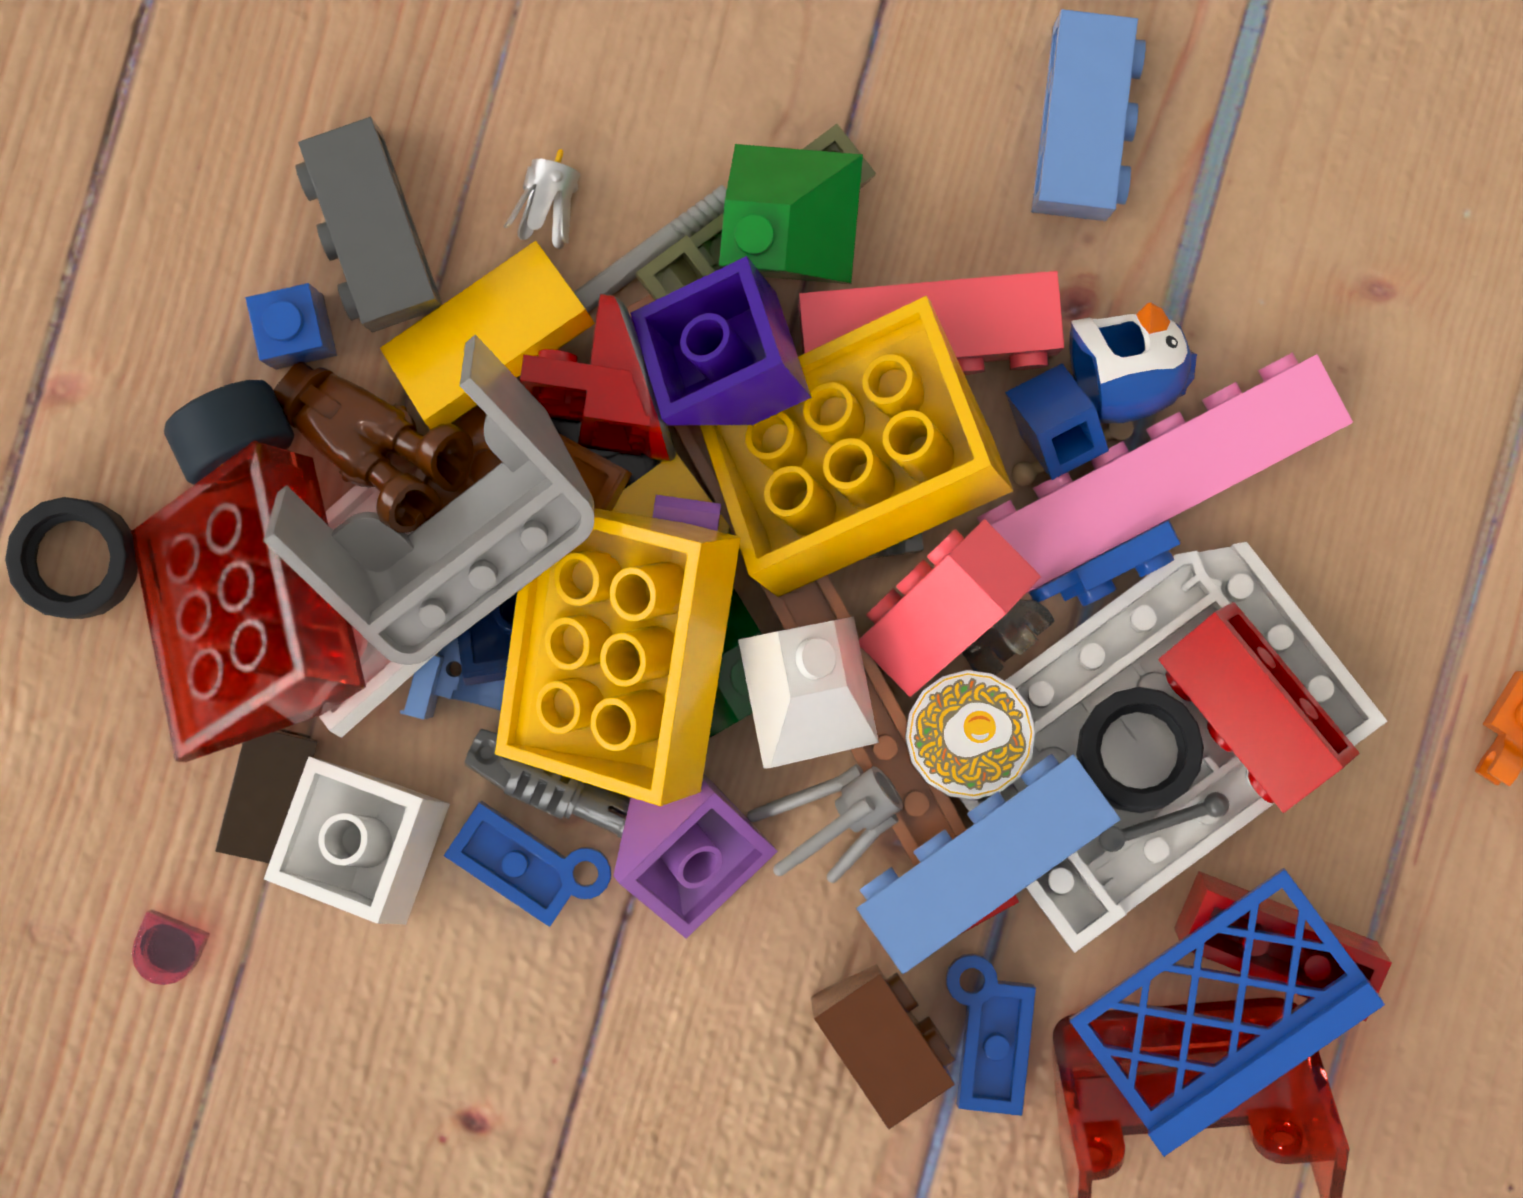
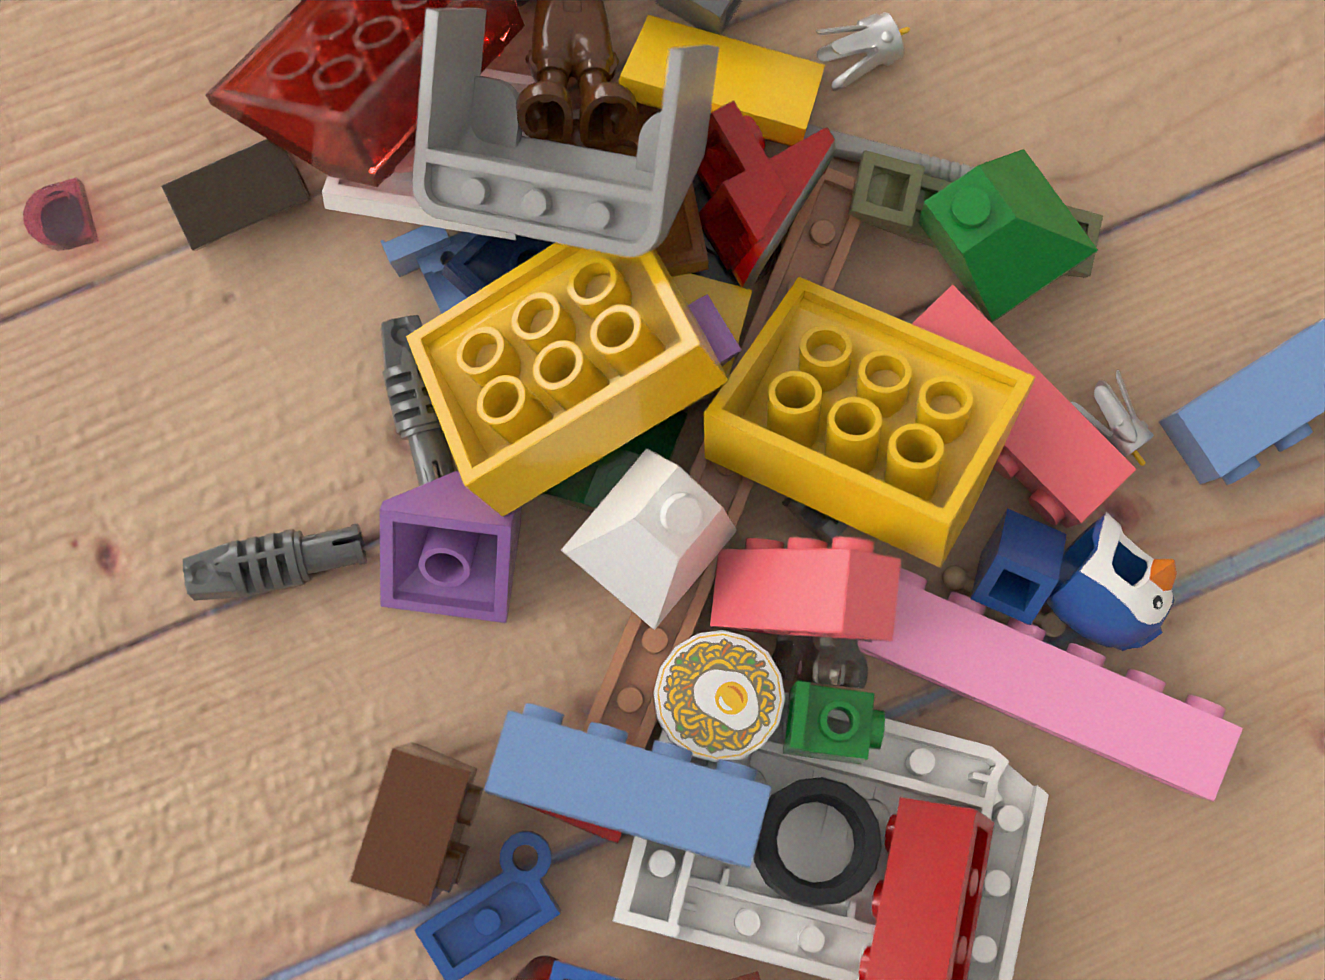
camera: 55 degrees right, 5 degrees down
(356, 842) = (253, 289): white slope -> none
(523, 865) = (338, 432): blue hinge -> none
(584, 998) = (270, 562): none -> dark grey hinge
(720, 350) = (860, 254): dark purple slope -> none
(866, 802) = (599, 656): light grey plant -> none
(1017, 250) = (1127, 430): none -> flat silver piece
(1048, 686) = (810, 735): none -> green brick
(1094, 578) = (921, 695): blue hinge -> none
(1215, 805) = (728, 879): dark grey hinge -> none

